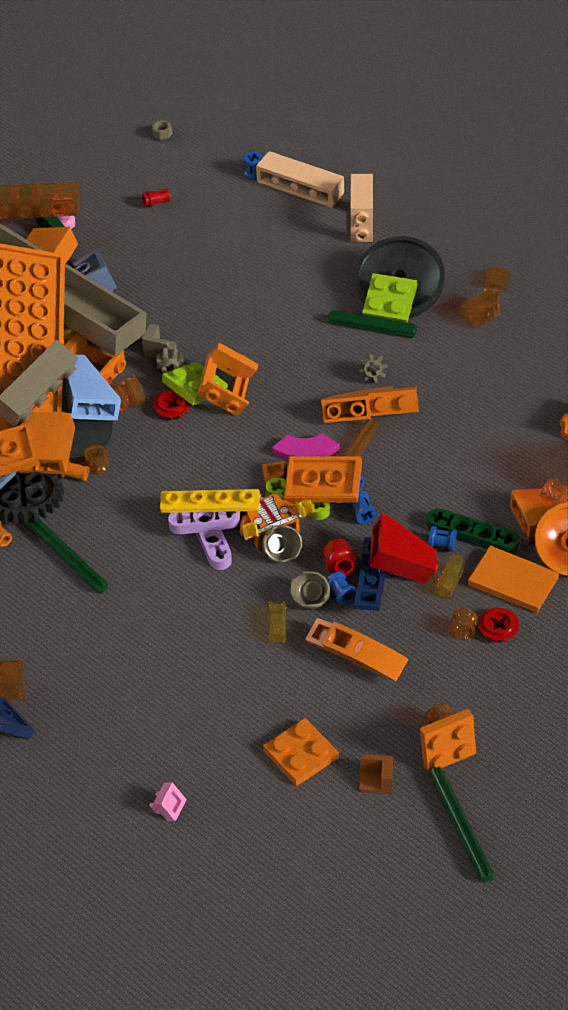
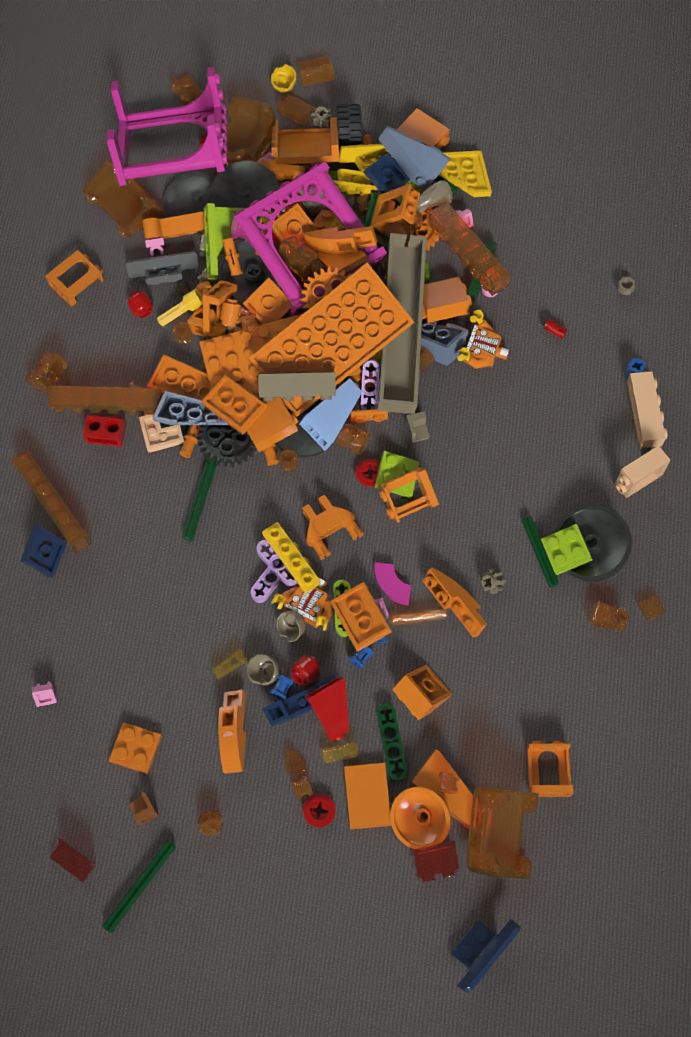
camera: 55 degrees right, 20 degrees up
(83, 340) = (374, 373): none -> lavender beam
(120, 252) = (483, 344): none -> torso
(169, 359) = (404, 445): dark tan gear -> none
(189, 462) = (327, 523): none -> orange connector
(273, 470) = (356, 577): orange tile -> none
(383, 868) = (72, 860): none -> clear red panel
(430, 622) = (294, 763): none -> clear orange tile
(441, 480) = (421, 691): none -> orange slope
(442, 538) = (365, 721): blue bush -> none
(448, 740) = (184, 838): orange plate -> none

